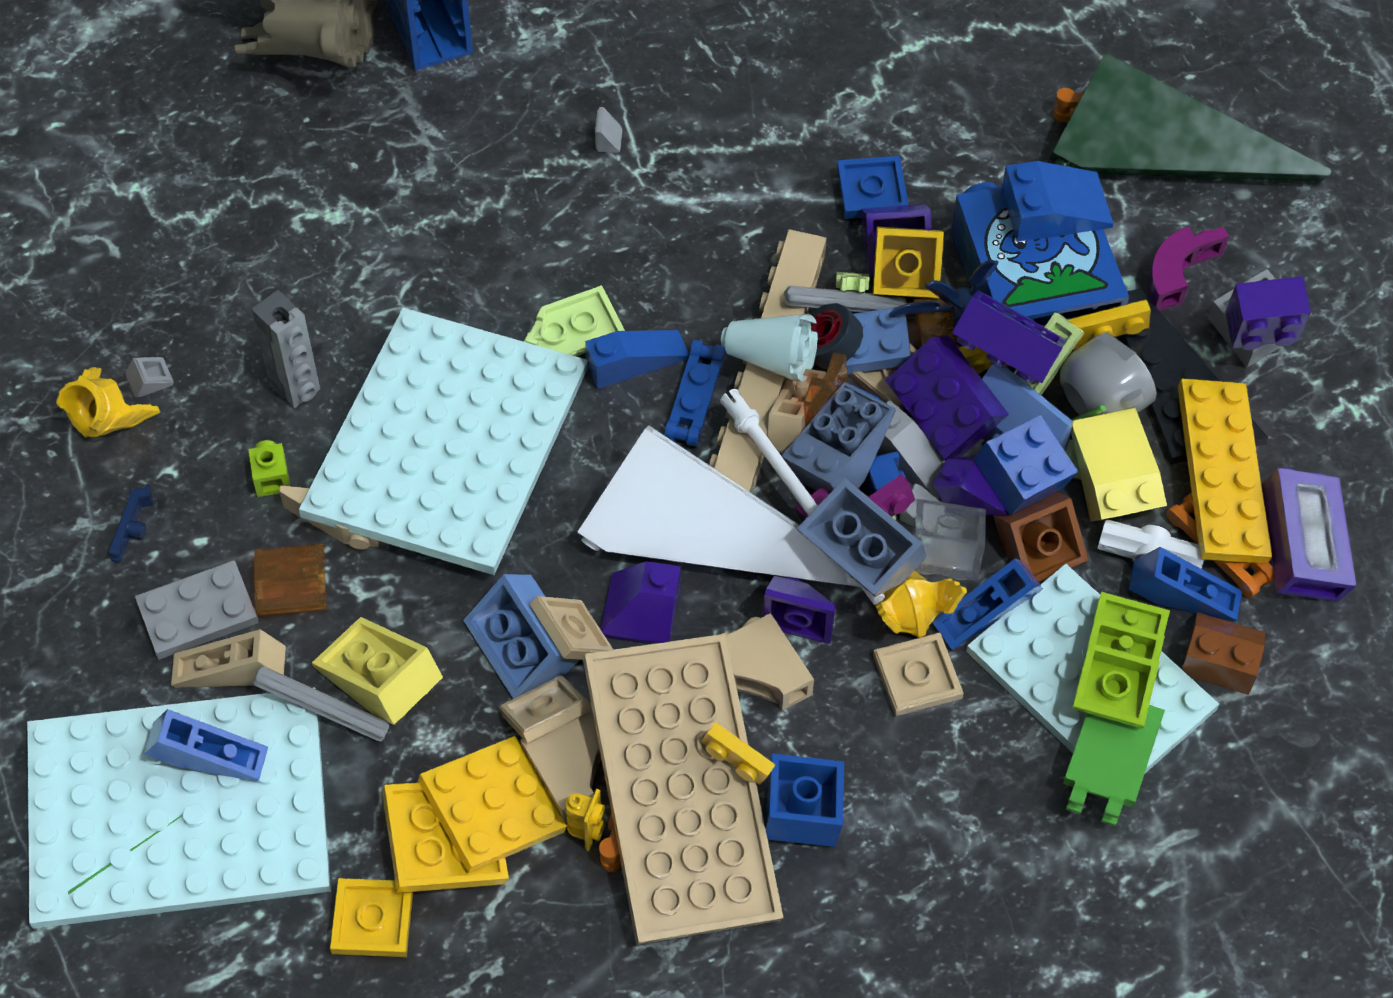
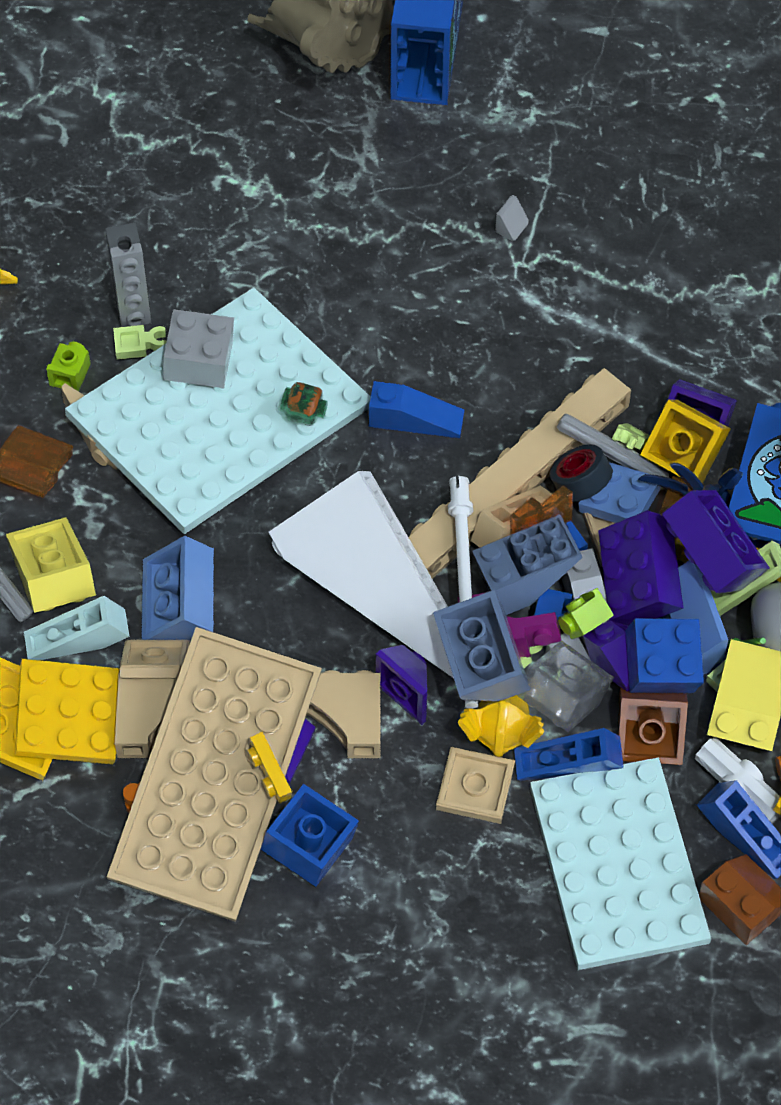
camera: 30 degrees right, 0 degrees up
(148, 375) = (27, 250): light grey slope -> none
(319, 414) = (133, 341): none -> yellowish green plate
(398, 388) = (198, 348): none -> light grey brick
(448, 721) = (78, 631): none -> light aqua slope
(533, 393) = (303, 403): none -> clear green head
(570, 626) = (215, 604): tan tile -> none
(574, 320) = (383, 362): yellowish green tile -> none
(585, 817) = (130, 758): yellow hinge -> none
(642, 603) = (289, 617): dark purple slope -> none
(695, 393) = (448, 462): blue plate -> none
(774, 343) = (524, 457): light aqua cone -> none
(870, 184) = (705, 363): blue plate -> none
(925, 462) = (584, 614): none -> lime brick
(1111, 762) = (587, 929): bright green tile -> none
(1121, 660) = (644, 857): lime slope -> none

